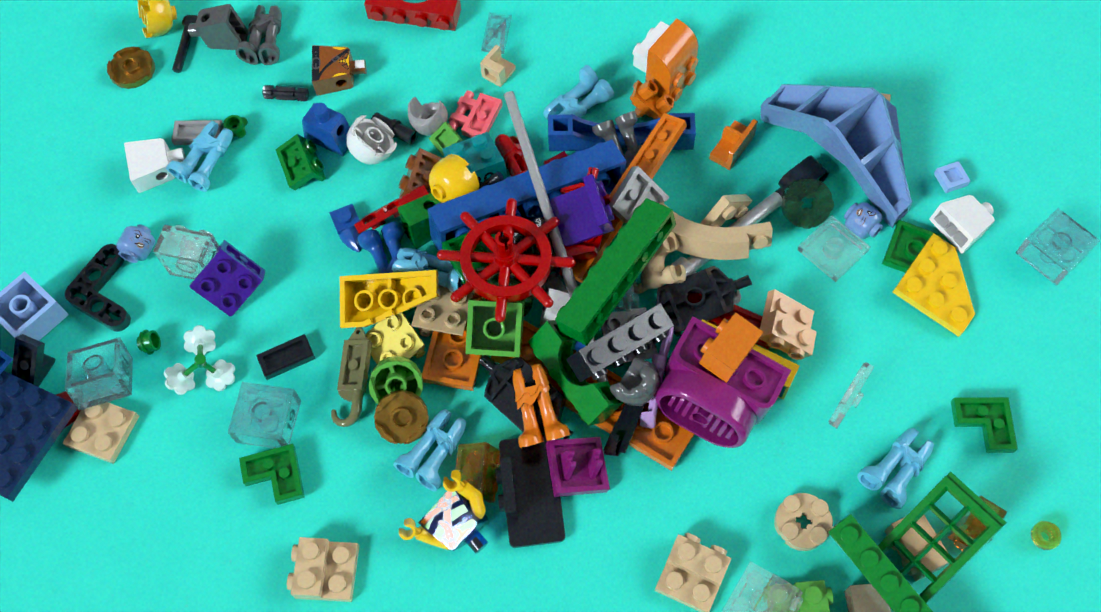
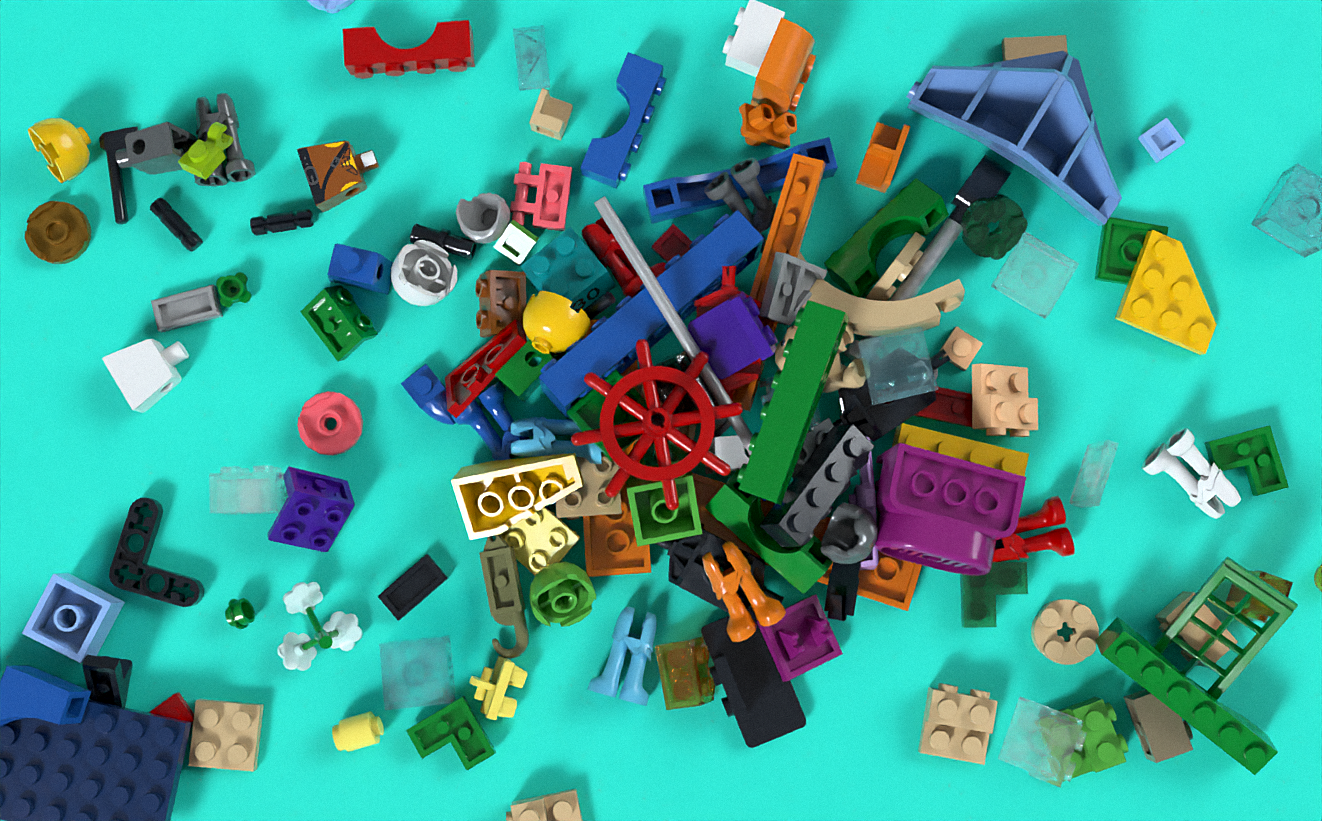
camera: 20 degrees left, 20 degrees up
(99, 373) = (200, 676): clear light blue brick -> none
(135, 243) = (172, 491): medium blue head -> none
(201, 451) = (357, 732): none -> light yellow brick
(202, 145) = (202, 333): medium azure piece -> none
(212, 79) = (176, 224): none -> black axle
(247, 35) = (206, 156): none -> lime plate
(267, 217) = (314, 419): none -> coral plate
(318, 457) = (495, 702): none -> light yellow hips
(401, 417) = (579, 632): pearl gold tile -> none
(453, 519) = (677, 742): torso -> none
(567, 60) = (608, 156): none -> blue arch
(569, 102) = (671, 155): medium azure piece -> none
(706, 273) = (897, 365): none -> clear light blue bracket
(730, 347) = (954, 477): orange brick -> none
(744, 463) = (980, 592): none -> clear green plate
(748, 178) = (911, 211): none -> green arch
(761, 284) = (961, 348): none -> light nougat plate
(775, 442) = (1057, 539): none -> red piece
(863, 220) = (1065, 231): medium blue head -> none
(910, 462) = (1174, 534): medium azure piece -> none
(948, 425) = (1210, 483): none -> white piece
(963, 220) = (1188, 204): white torso -> none

